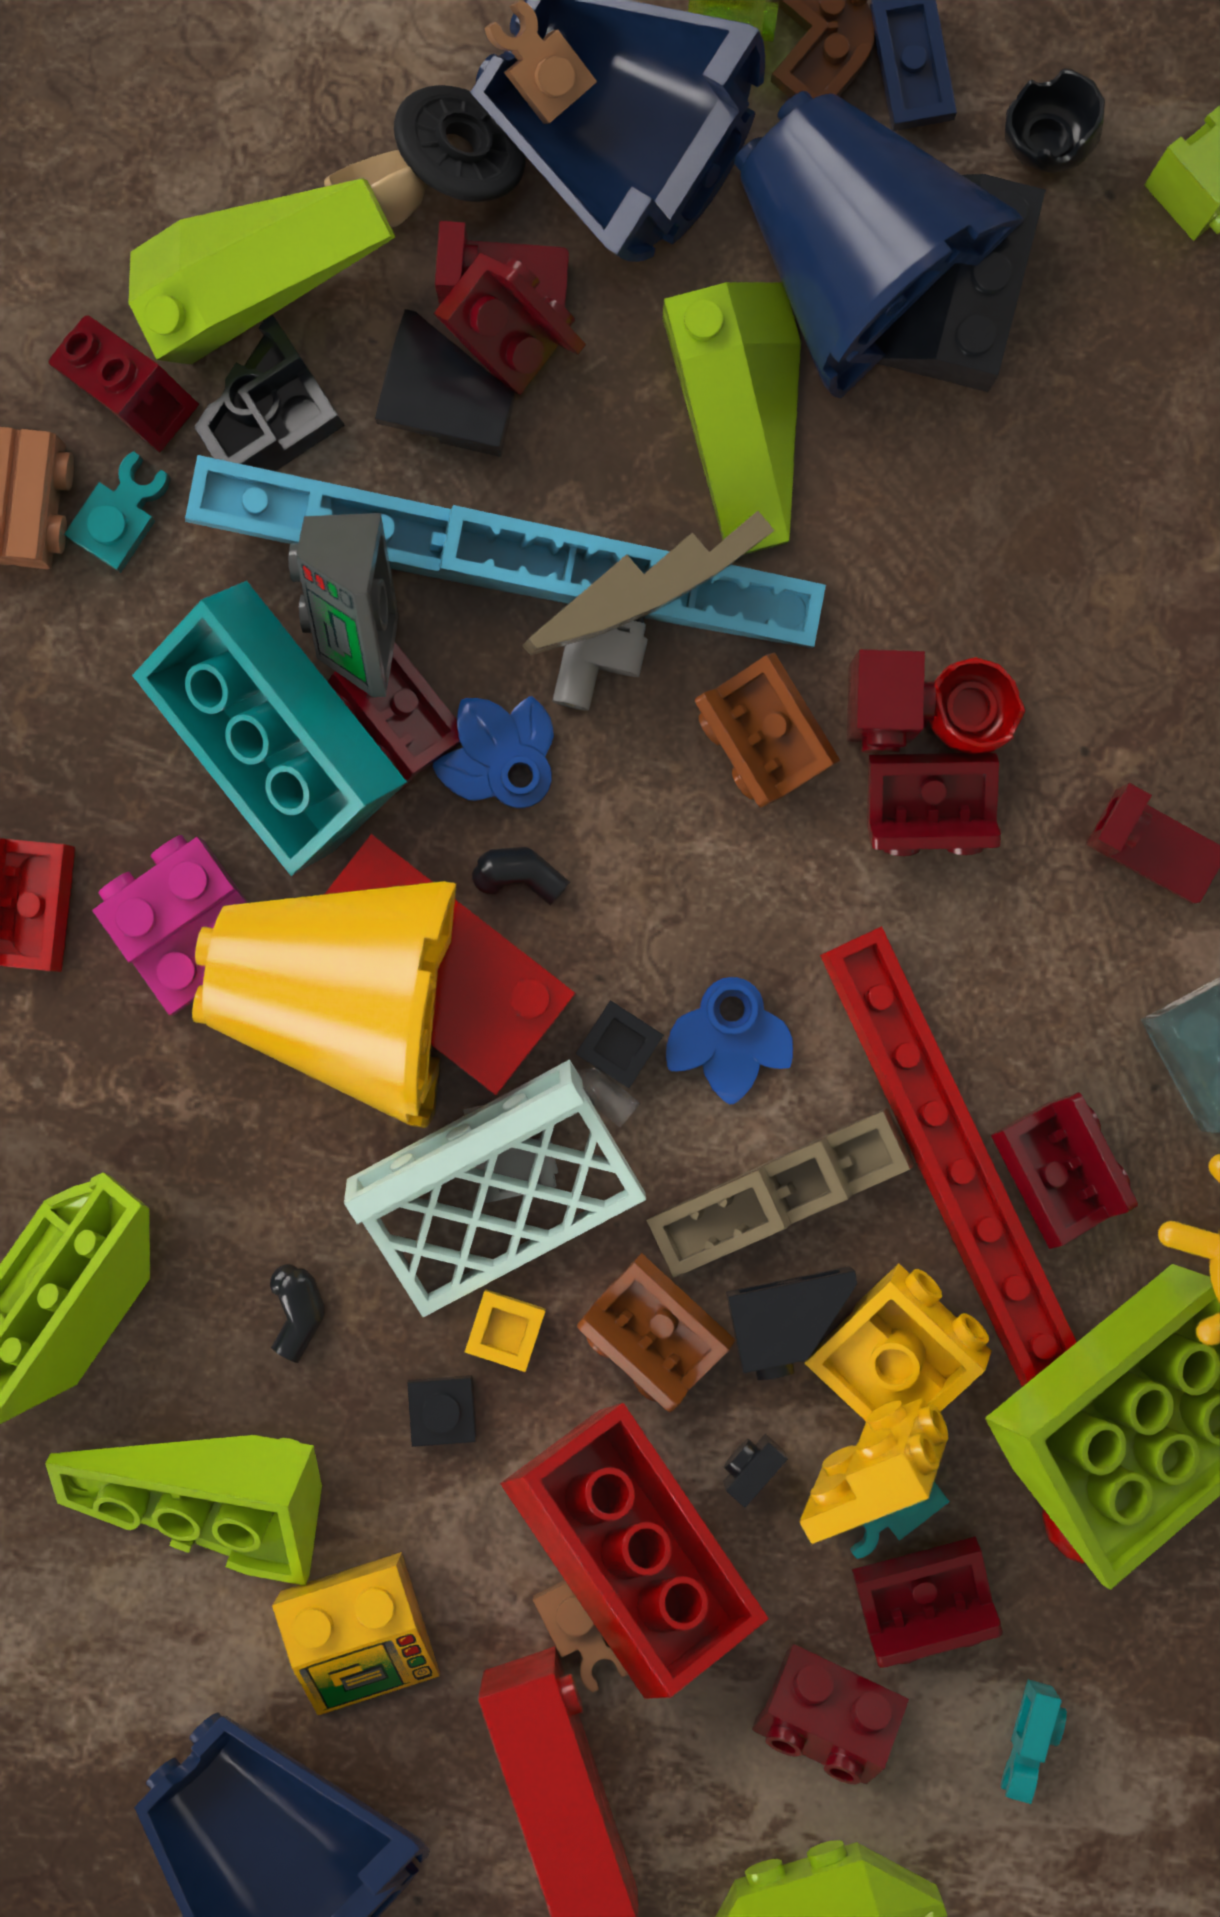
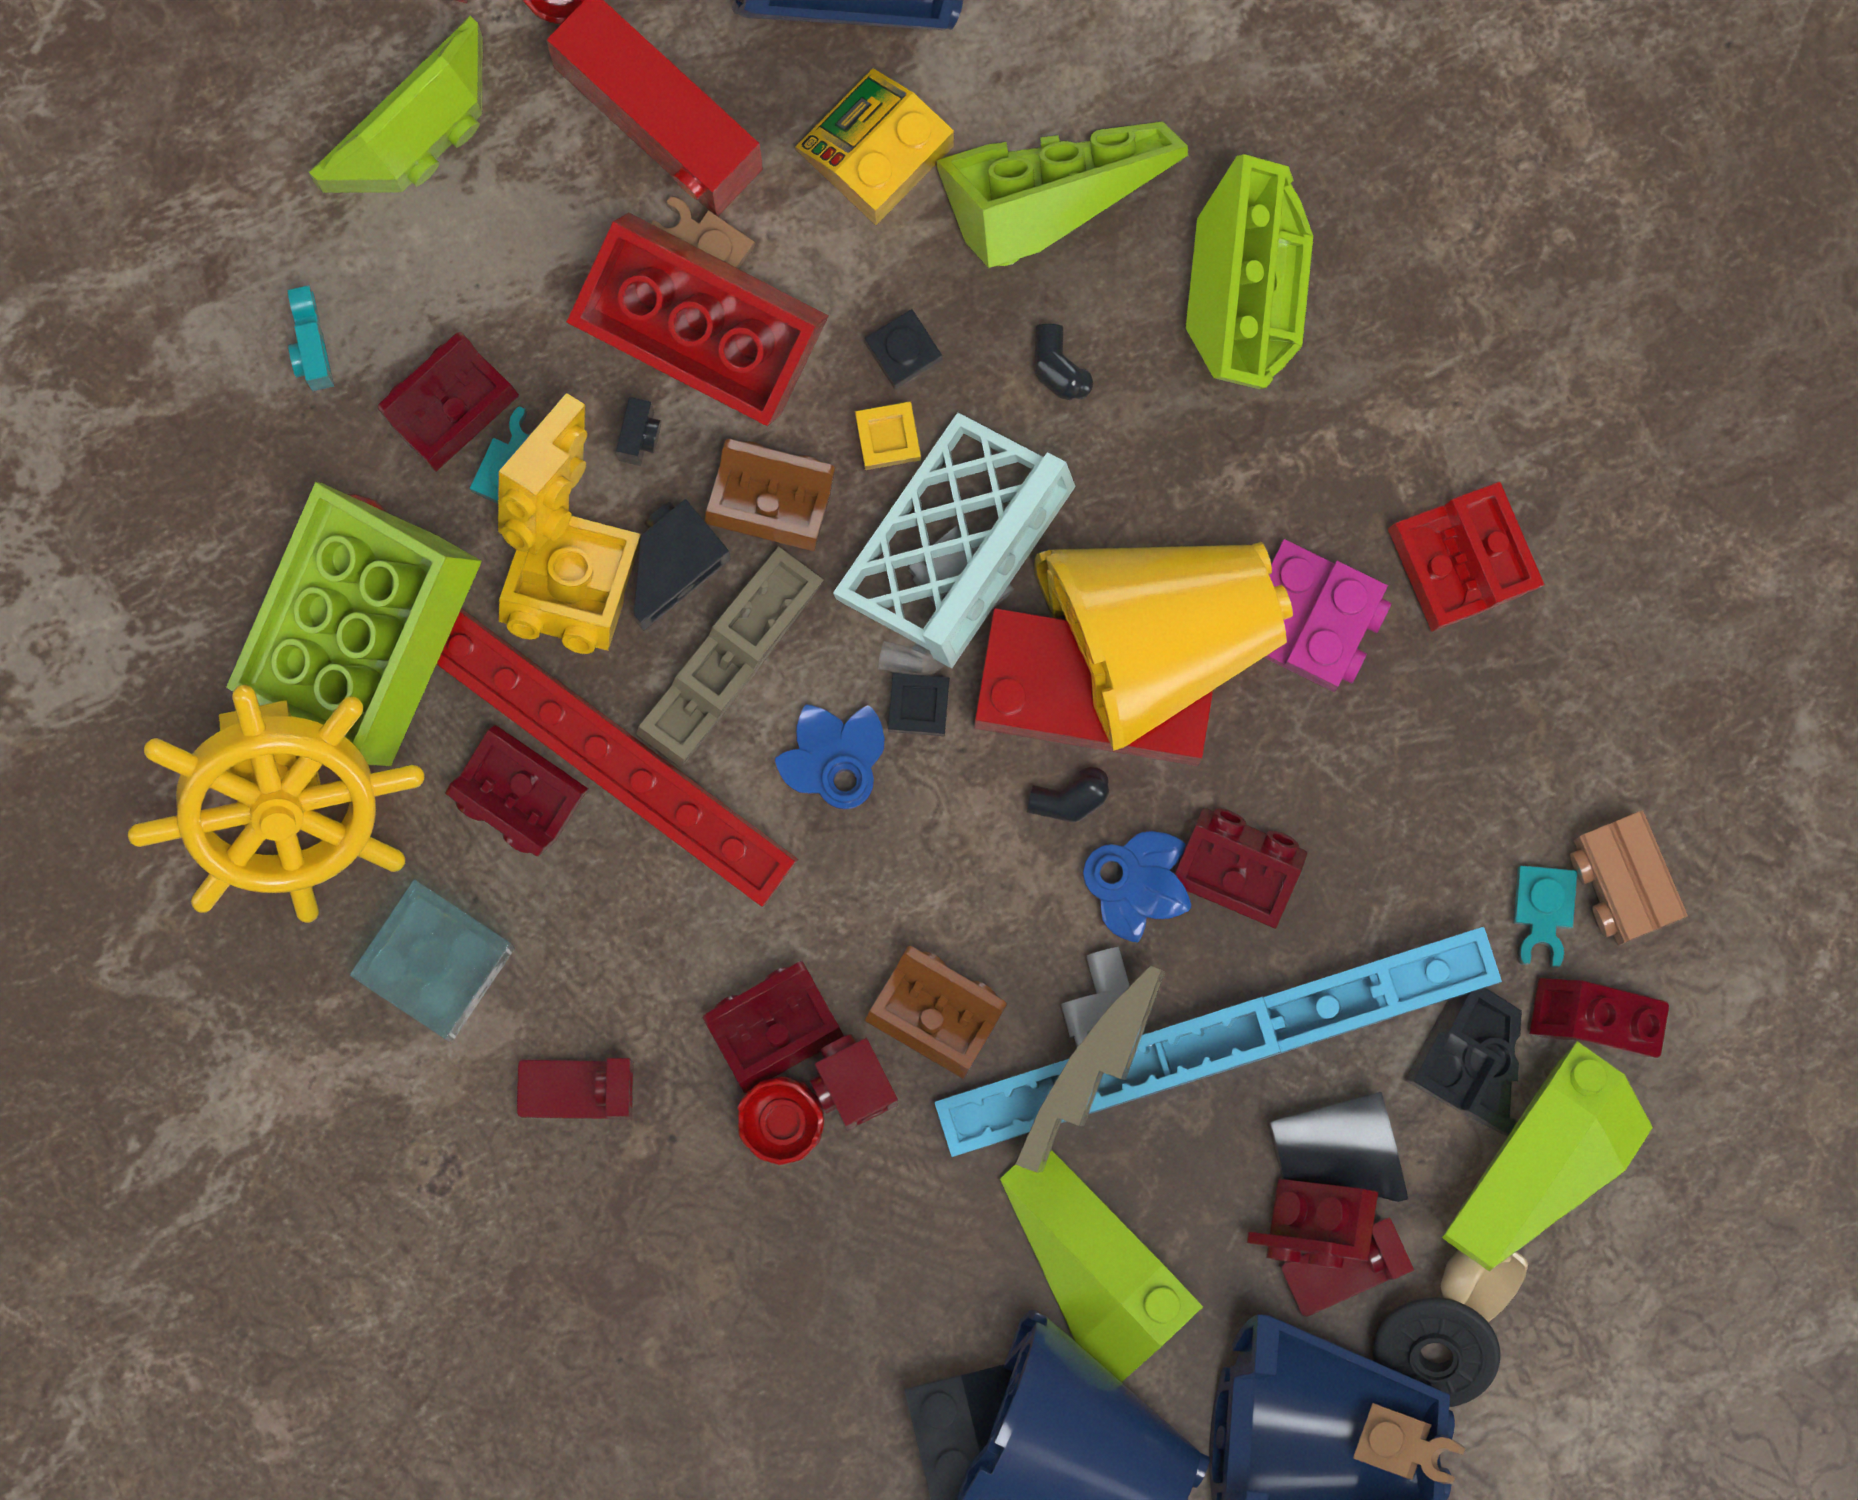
camera: 150 degrees right, 5 degrees down
(268, 727) = (1328, 799): teal brick -> none
(347, 596) = (1321, 934): dark grey slope -> none
(831, 1717) = (475, 275): dark red bracket -> none

